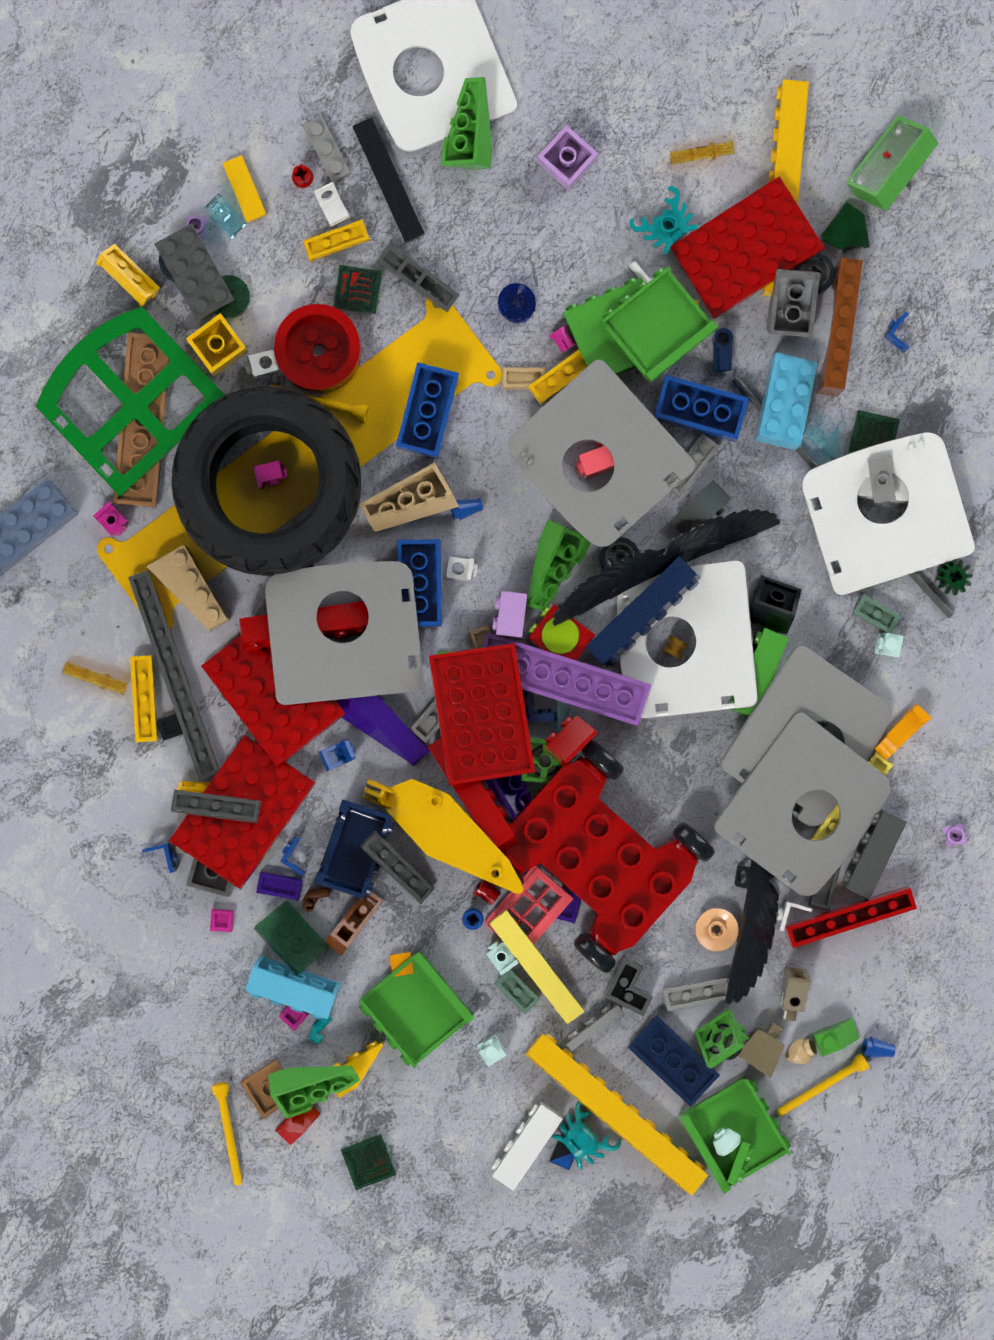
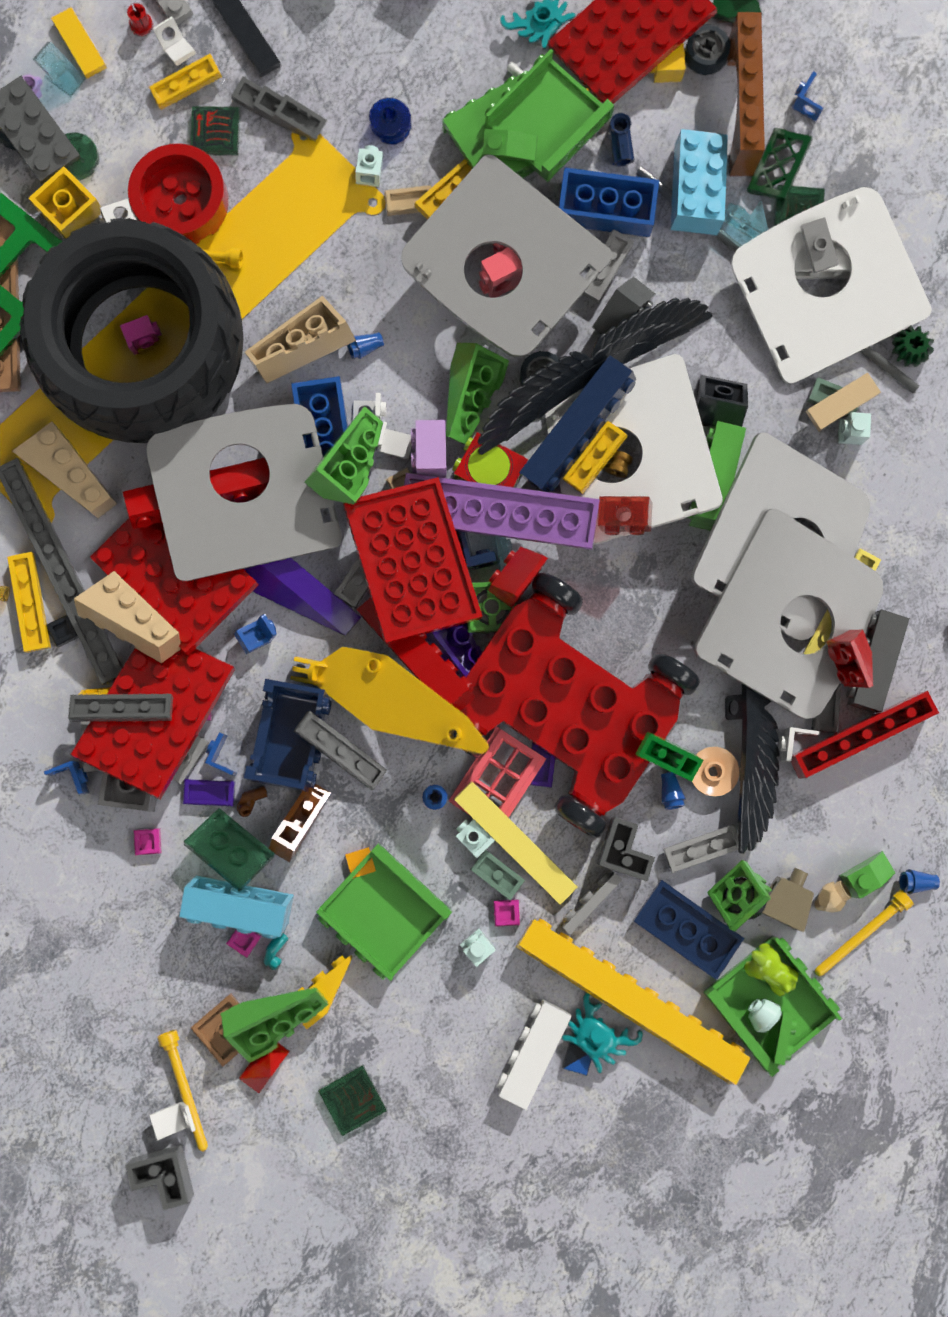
camera: 15 degrees left, 5 degrees down
(206, 1195) = (167, 1170): none -> dark grey brick
(216, 1156) = (171, 1120): none -> white bracket
(229, 725) = (127, 615): none -> tan wedge
(427, 410) = (307, 243): blue brick -> none
(434, 624) = (346, 466): none -> bright green wedge
(480, 601) = (394, 443): none -> white bracket
(486, 892) = (446, 765): red bush -> none
(489, 350) = (369, 166): none -> light aqua brick
(520, 1024) = (506, 912): none -> dark pink tile
(563, 338) = (442, 148): dark pink bush -> none
(619, 351) = (510, 145): none -> bright green slope
(654, 642) = (595, 457): none -> yellow tile
(661, 692) = (613, 506): none -> clear red brick
(677, 942) = (672, 794): none -> blue cone
(679, 913) = (669, 756): none -> green slope
(736, 1102) = (768, 967): none -> lime animal
(793, 303) = (691, 74): flat silver slope -> none
(796, 985) = (814, 829): dark tan torso -> none
(850, 849) = (852, 658): none -> red slope
(878, 394) = (790, 139): none -> dark green window
(882, 620) = (843, 402): none -> tan tile
(902, 731) = (885, 520): light orange leg -> none

